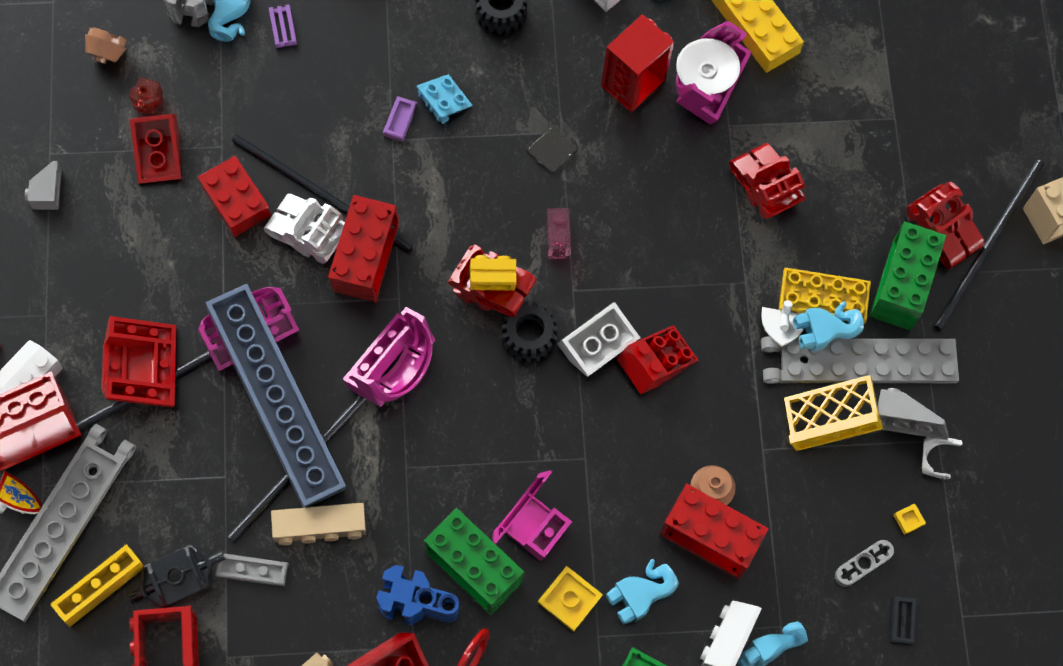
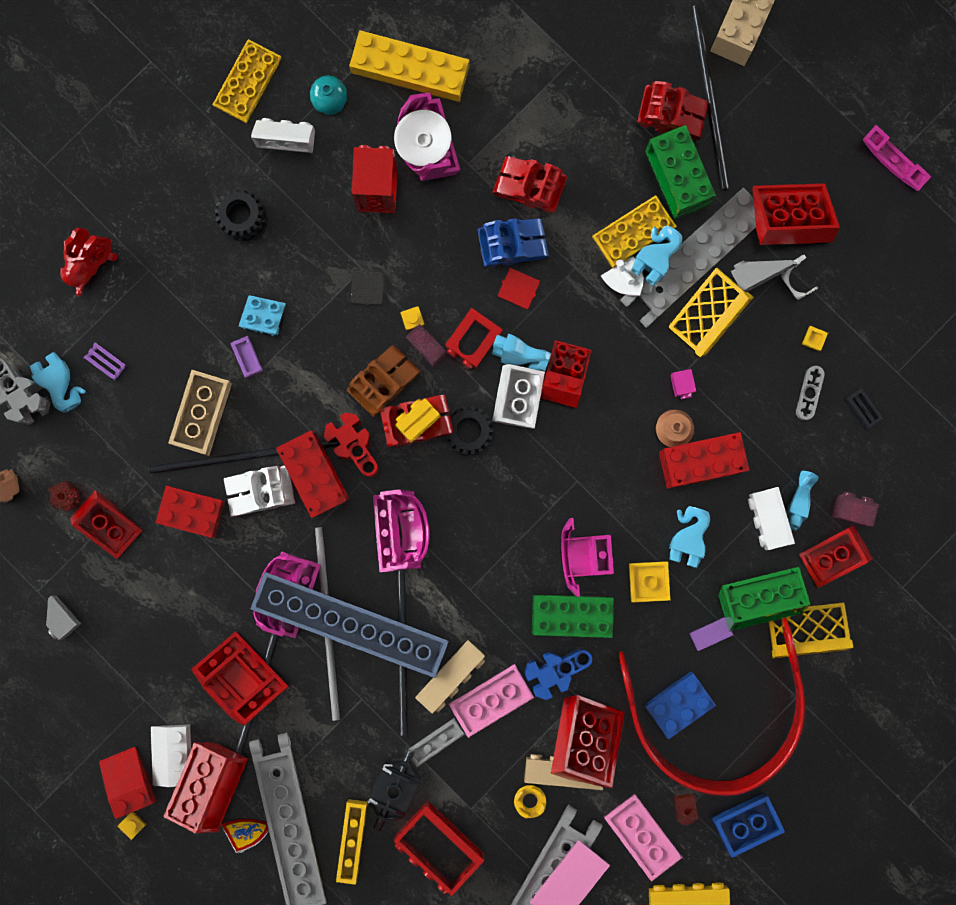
camera: 35 degrees left, 15 degrees up
(243, 404) = (328, 642): none -> light grey piece
(319, 126) = (200, 412): none -> tan brick
(334, 578) = (491, 700): none -> bright pink tile
(420, 255) = (350, 441): none -> red connector
(495, 227) = (382, 381): none -> dark orange connector
(569, 201) = (412, 318): none -> yellow plate
(589, 278) = (453, 343): none -> red panel
(630, 299) = (516, 352): none -> medium azure hips
(680, 258) = (518, 288): none -> red piece
(718, 215) = (512, 242): none -> blue connector
(754, 454) = (683, 384): none -> dark pink brick
(981, 397) = (794, 214): none -> red slope

